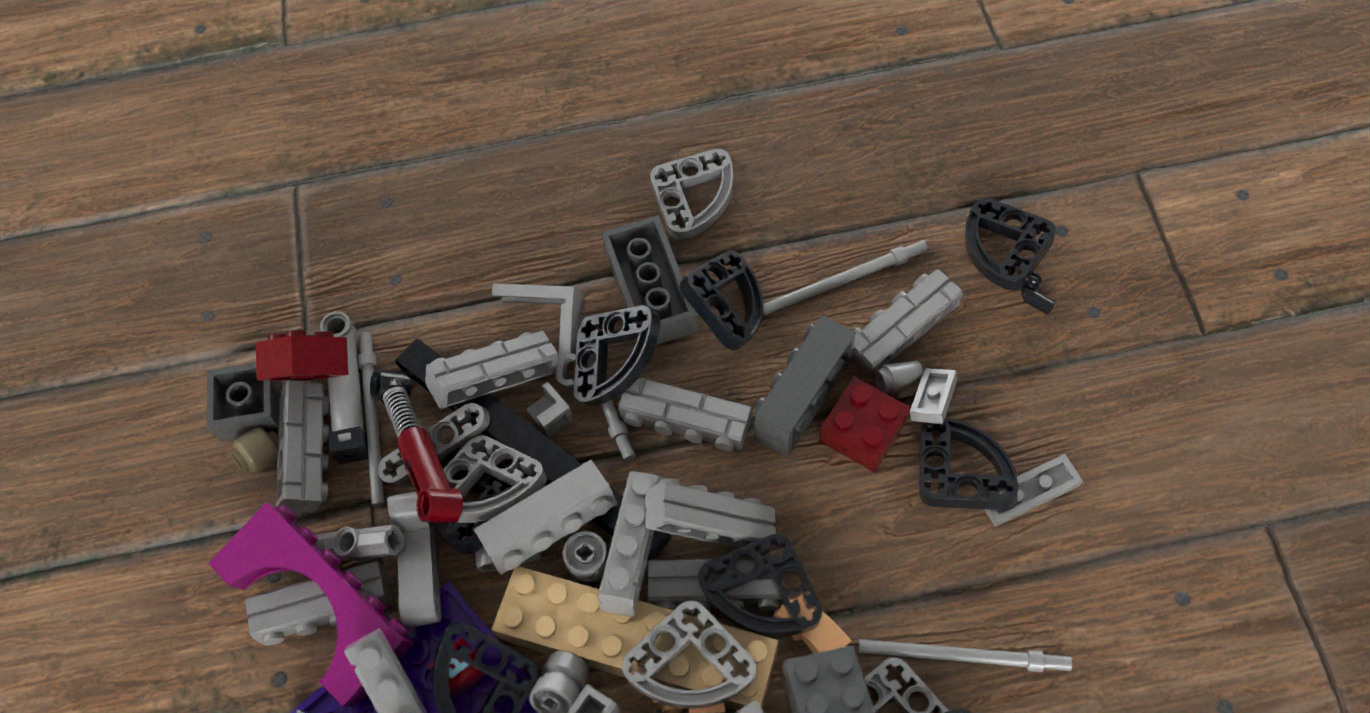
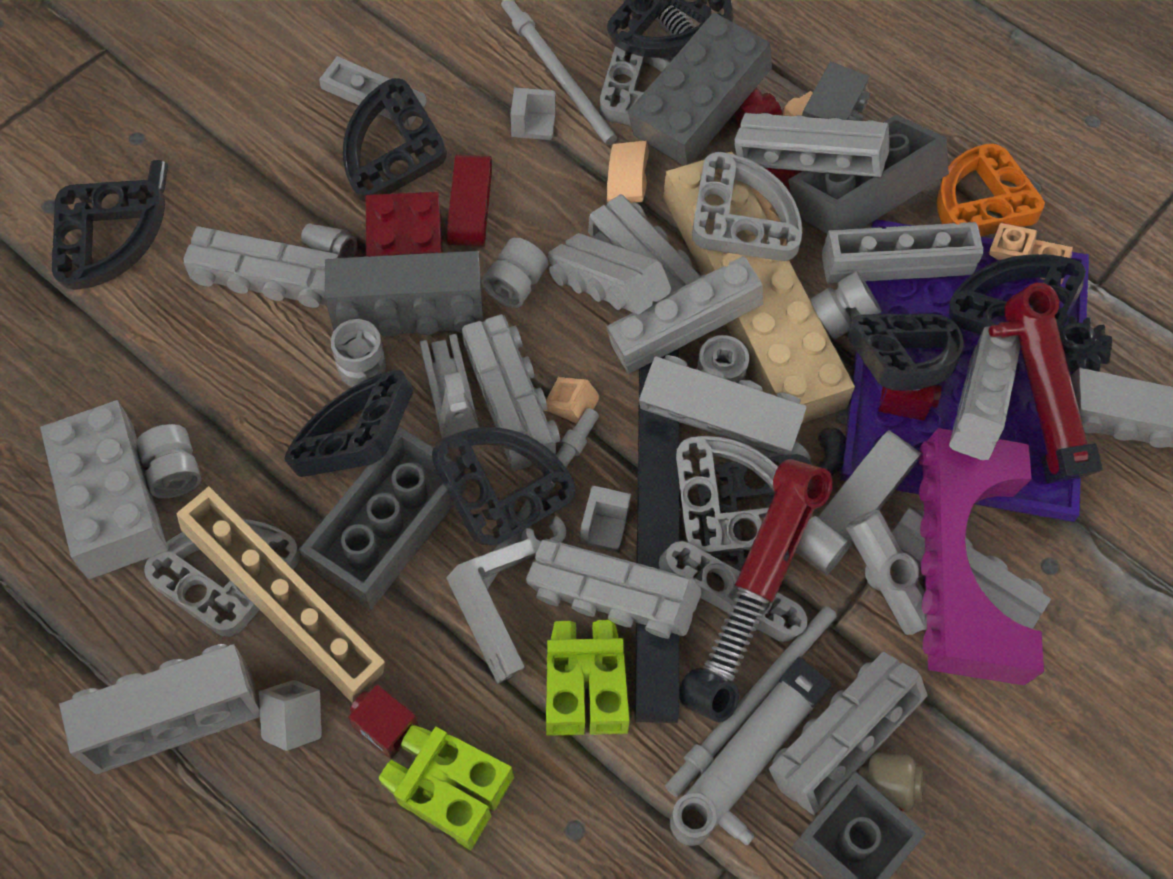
camera: 135 degrees left, 0 degrees up
(301, 356) = (773, 783): dark red brick -> none
(458, 325) = (583, 665): none -> lime hips
(469, 225) = (432, 780): none -> lime hips
(472, 595) = (834, 446): none -> black arm
(531, 215) = (381, 720): none -> dark red brick
(575, 176) = (290, 715): none -> light grey panel
(622, 113) = (160, 709): none -> light grey brick
(640, 194) = (280, 594): none -> tan brick
(653, 454) = (571, 398): none -> light nougat slope
(707, 377) = (449, 387): none -> light grey hinge
(773, 472) = (517, 268): none -> light grey wheel
(776, 569) = (608, 205): black beam -> none
(782, 333) = (357, 351): none -> light grey wheel
(787, 193) = (169, 461): none -> light grey wheel
(790, 148) = (102, 490): none -> light grey brick
(869, 492) = (469, 200): none -> dark red beam
(896, 257) = (184, 321): light grey bar -> none
(923, 595) = (533, 113): none -> light grey panel
(933, 395) = (331, 197): light grey plate -> none

